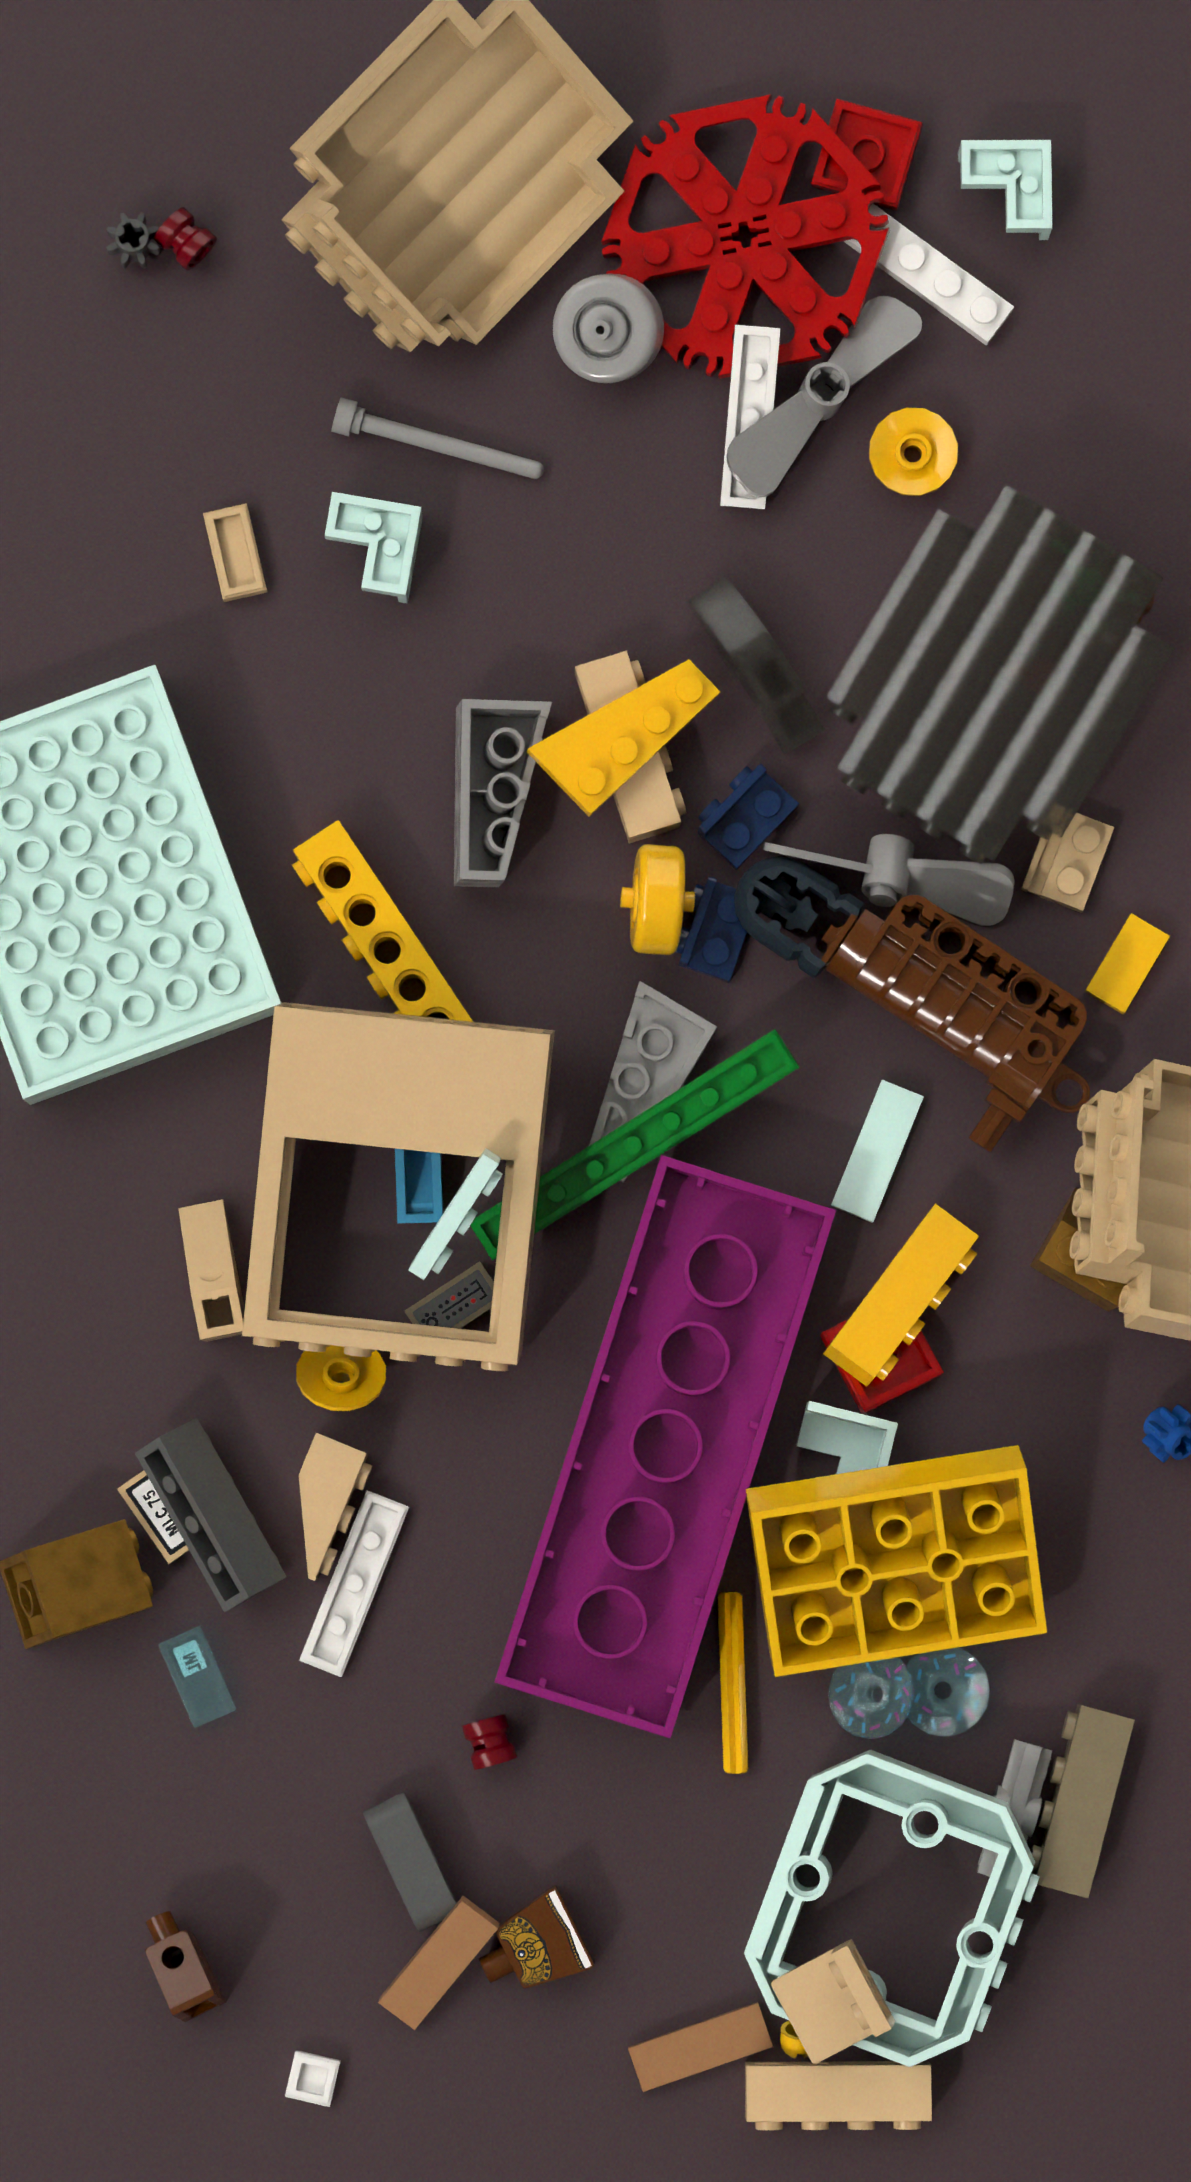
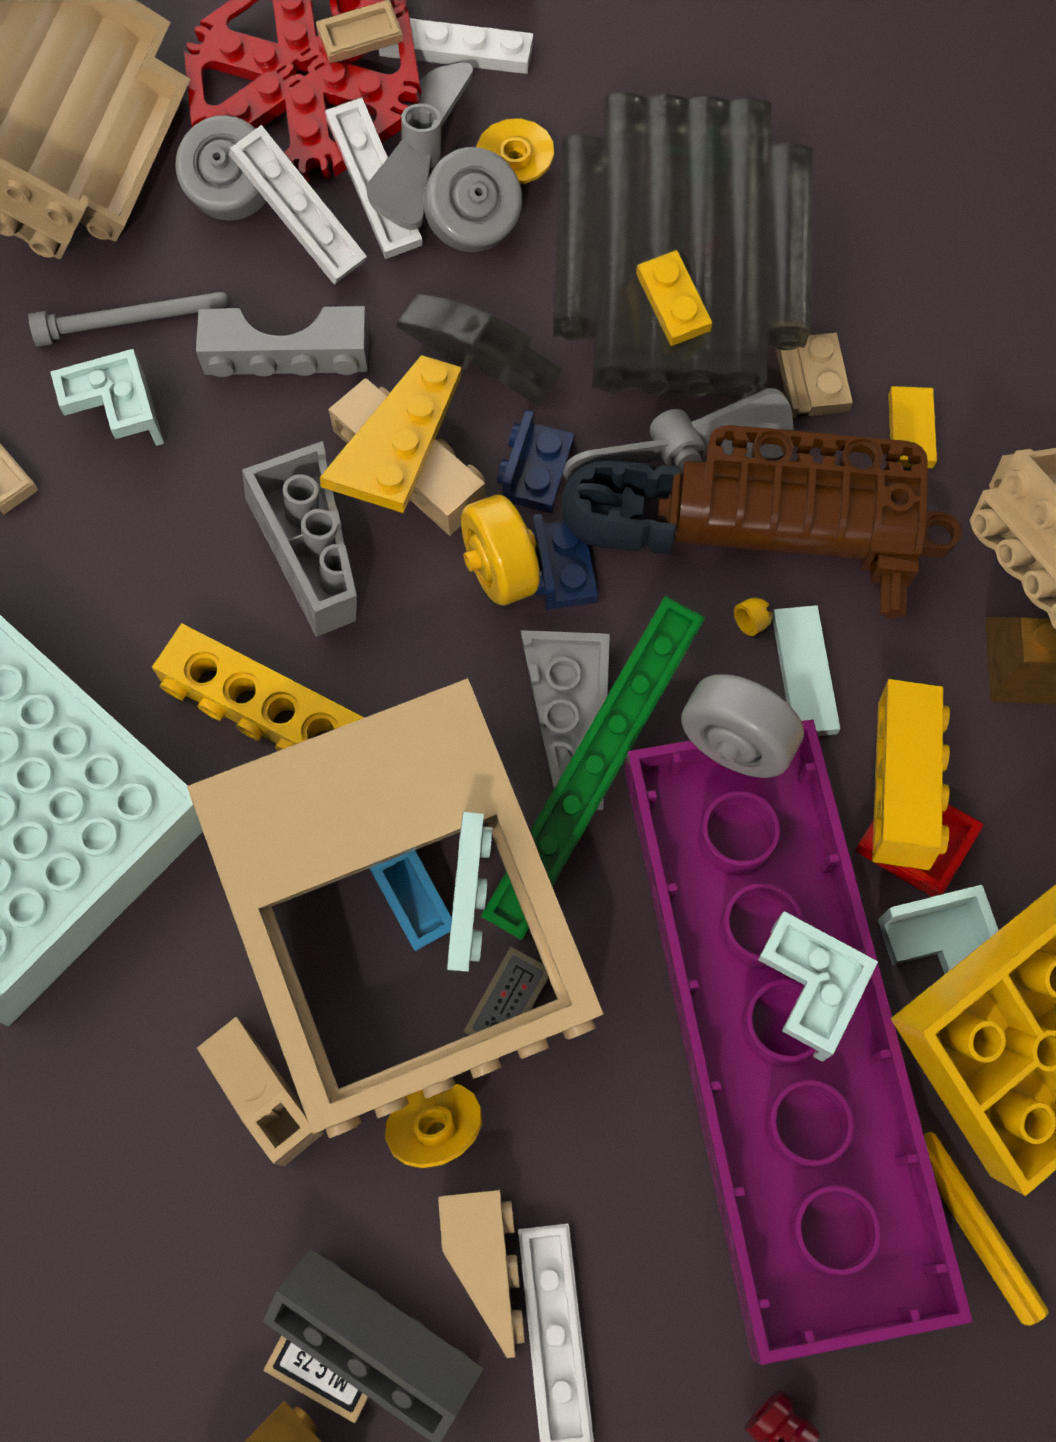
camera: 25 degrees left, 15 degrees down
(621, 584) = (329, 345): none -> light grey arch
(656, 417) = (297, 204): none -> white plate
(708, 1432) = (831, 977): none -> light aqua panel
(757, 1193) = (742, 725): none -> light grey wheel
(821, 235) = (359, 31): none -> tan tile
(835, 495) = (472, 199): none -> light grey wheel
(861, 1075) = (753, 616): none -> yellow hinge
(945, 742) = (674, 298): none -> yellow plate

